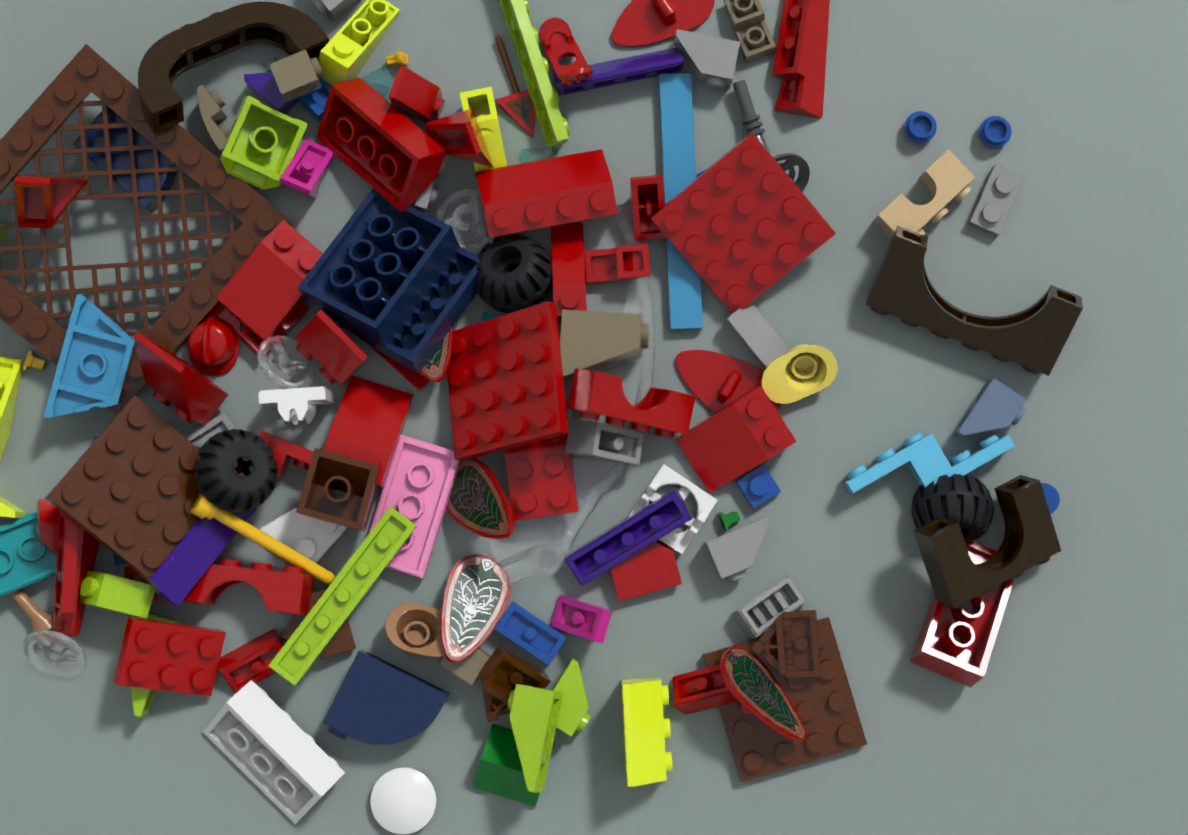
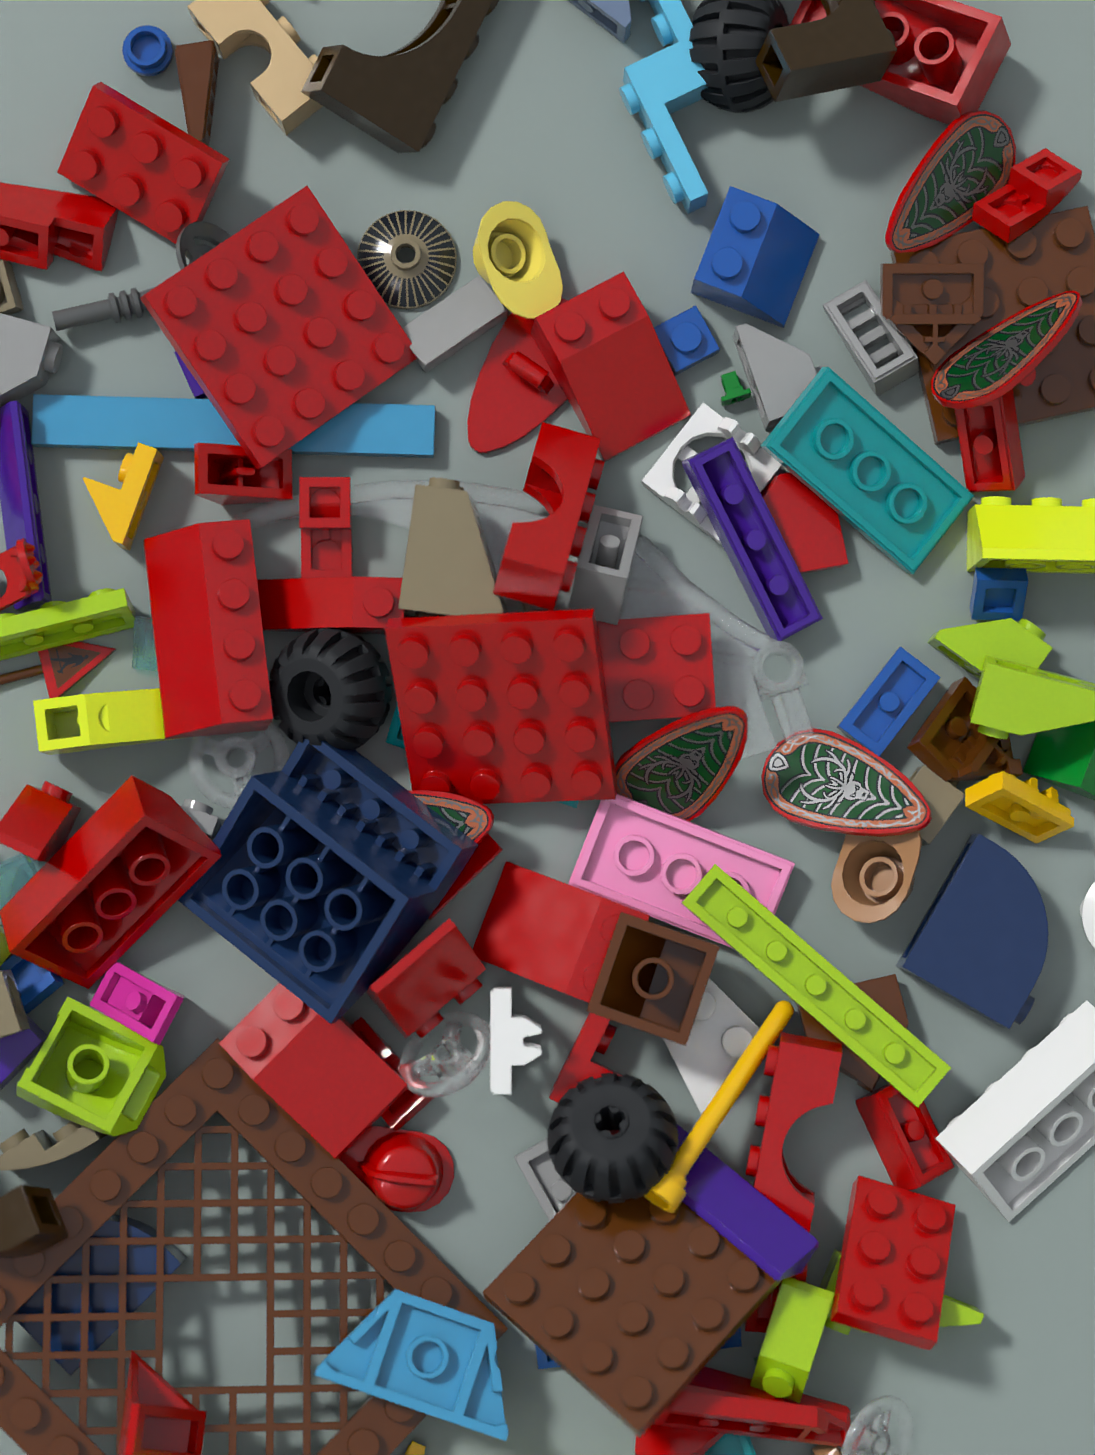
camera: 85 degrees left, 0 degrees up
(178, 382) = (466, 1224): red slope -> none
(460, 137) = (109, 754): red slope -> none
(467, 721) = (1019, 806): none -> yellow plate
(581, 618) = (872, 621): dark pink slope -> none
(605, 700) = (998, 593): none -> blue plate
(620, 135) = (124, 508): none -> yellow slope
(679, 609) = (867, 470): none -> teal tile
(786, 315) = (411, 283): none -> dish
(814, 528) = (755, 258): none -> blue slope
(844, 128) = (141, 163): none -> red plate
(873, 707) = (1032, 192): none -> red slope
(874, 654) = (958, 170): none -> shield
(901, 160) = (198, 80): none -> reddish brown slope

